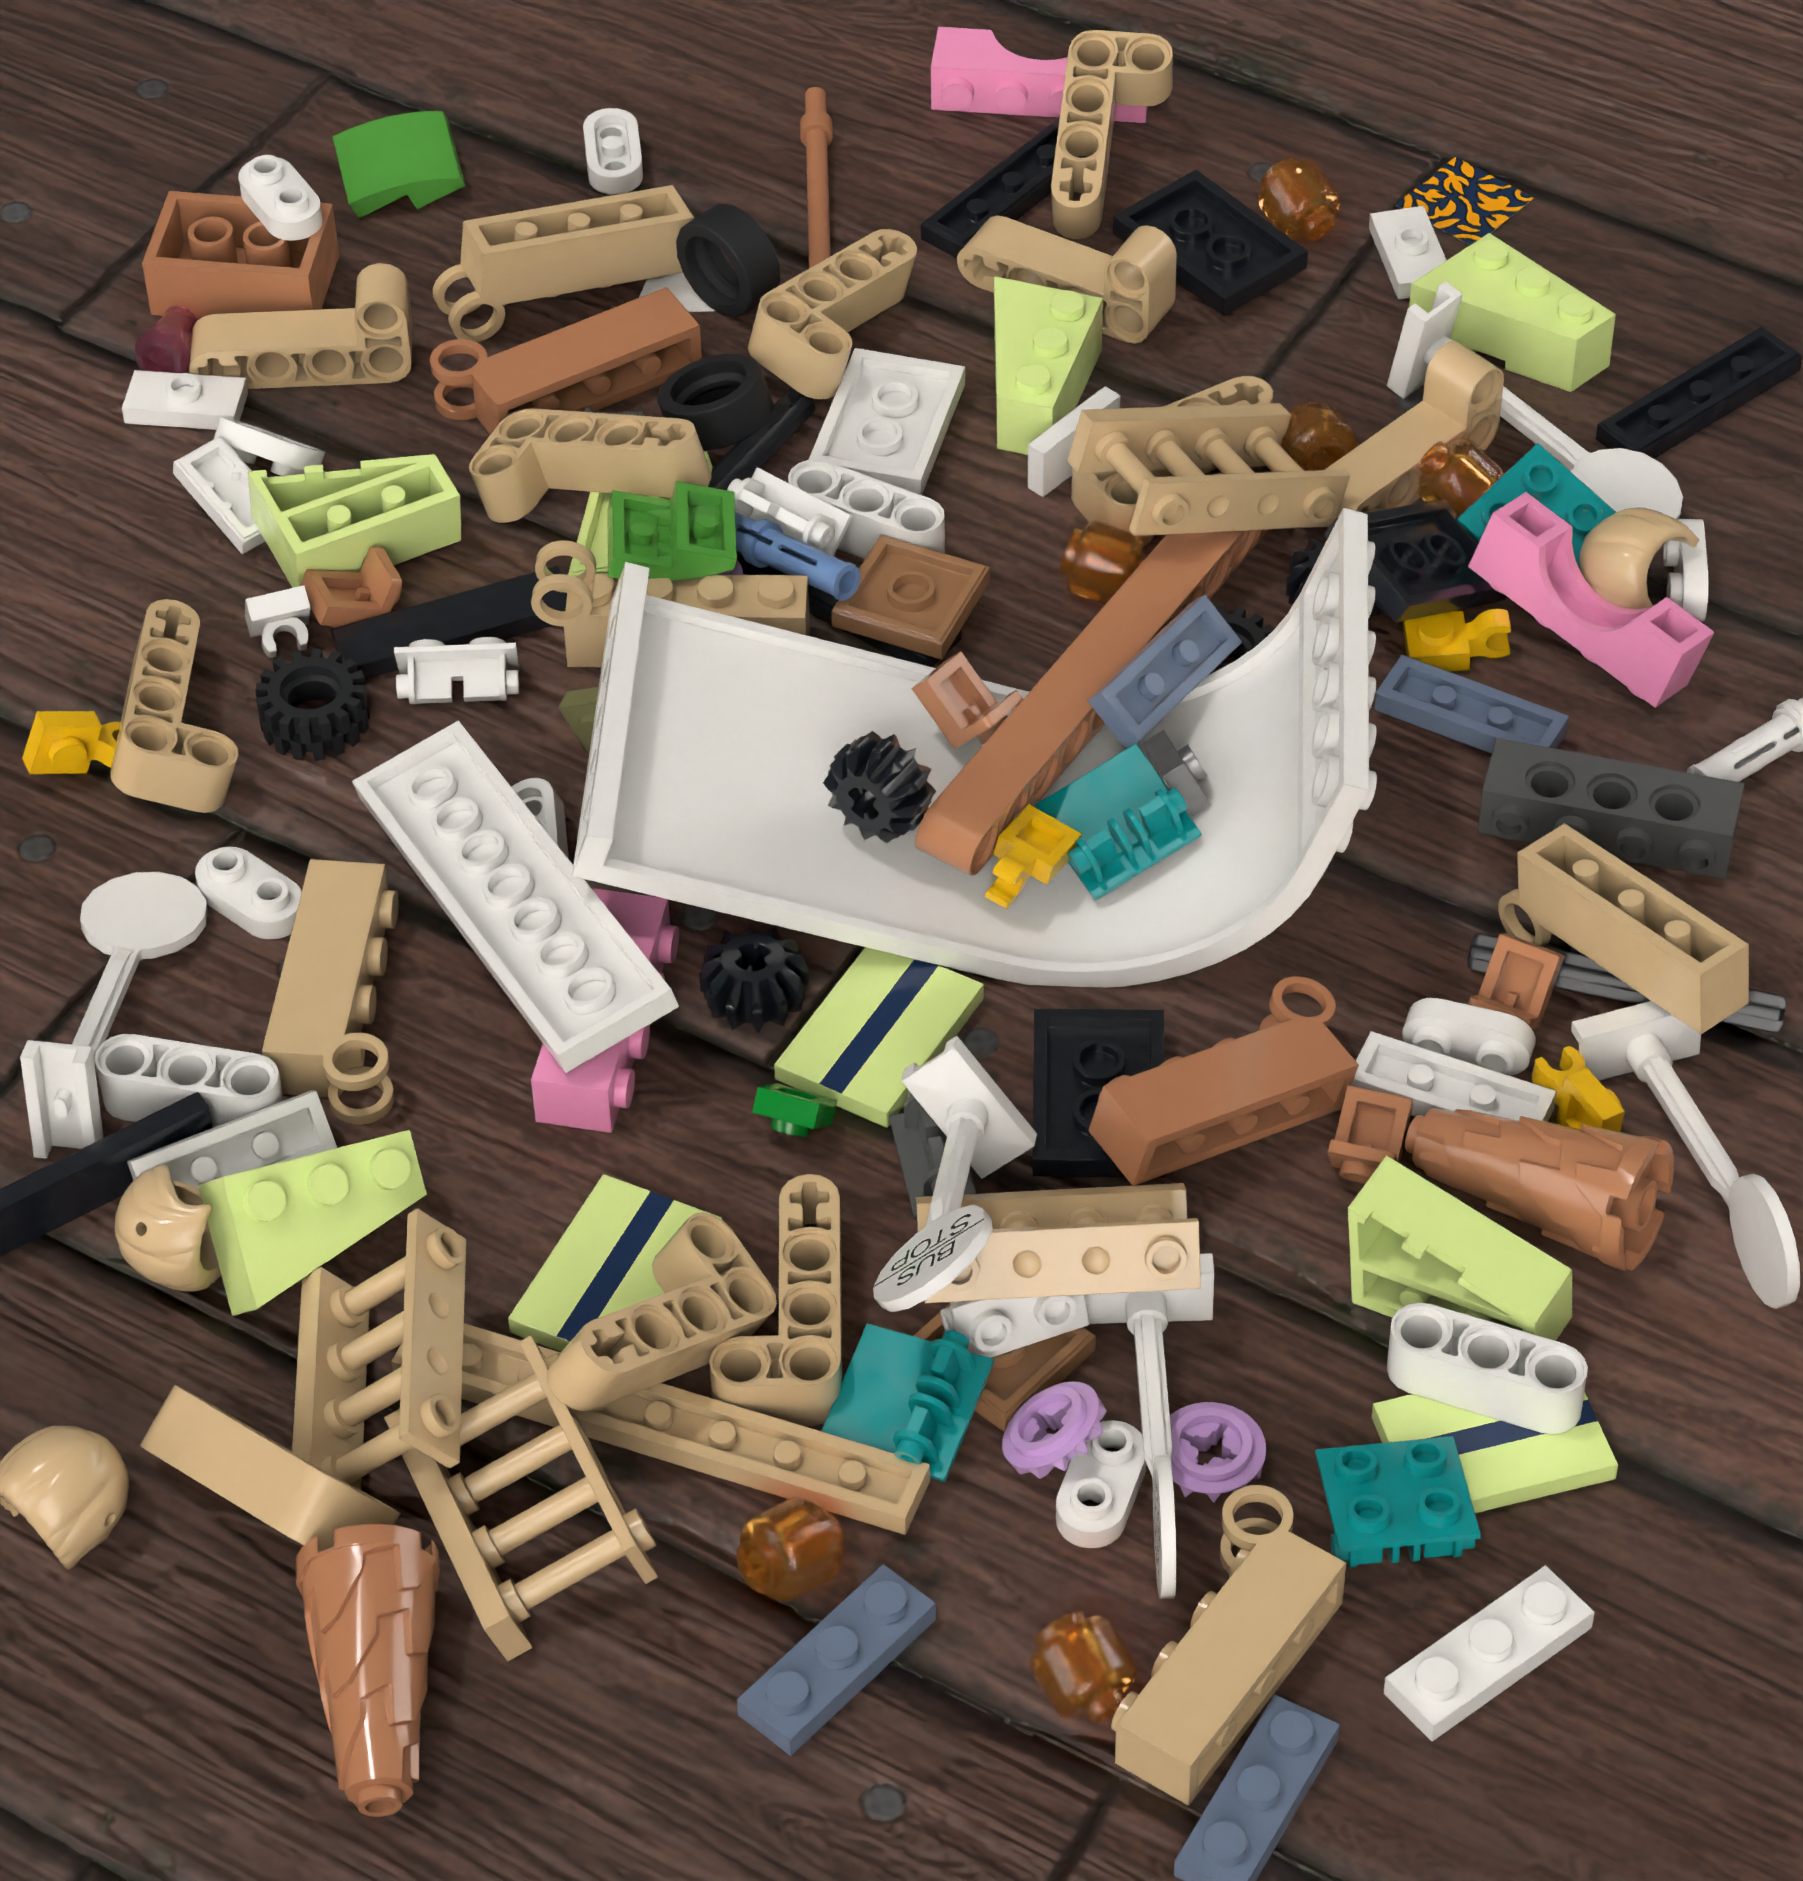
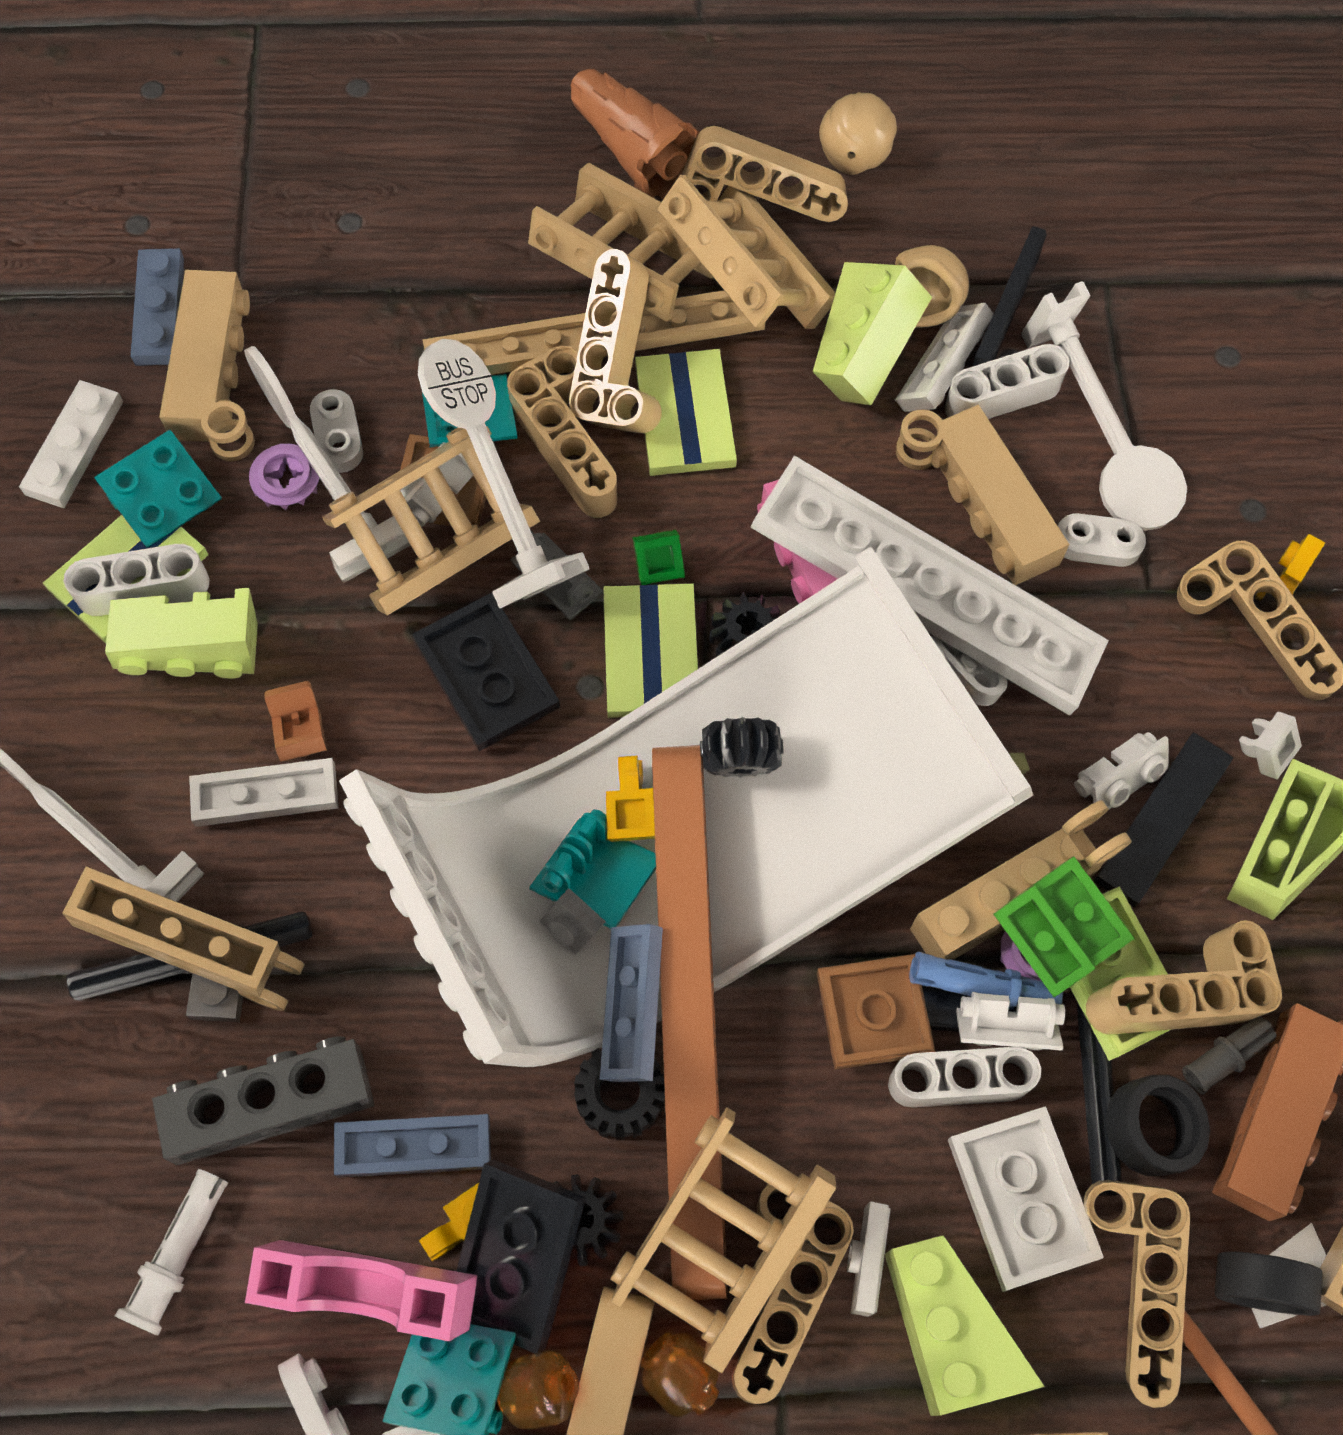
camera: 145 degrees right, 20 degrees up
(319, 727) = (1201, 669): black tyre -> none
(350, 596) = (1246, 789): nougat bracket -> none
(790, 1549) = (472, 296): clear orange head -> none
(836, 1659) = (416, 270): sand blue plate -> none
(962, 702) = (748, 888): nougat bracket -> none
(1064, 1406) = (391, 429): lavender gear -> none
(1082, 1667) = (279, 312): clear orange head -> none
(1100, 560) = (767, 1127): clear orange head -> none
(1227, 1092) = (393, 685): nougat hinge -> none
(1470, 1034) = (257, 840): white plate -> none
(1519, 979) = (257, 888): nougat bracket -> none
(1575, 1184) = (156, 742): nougat cone -> none
(1579, 1093) = (162, 821): yellow plate -> none
(1620, 551) = (354, 1366): tan piece -> none

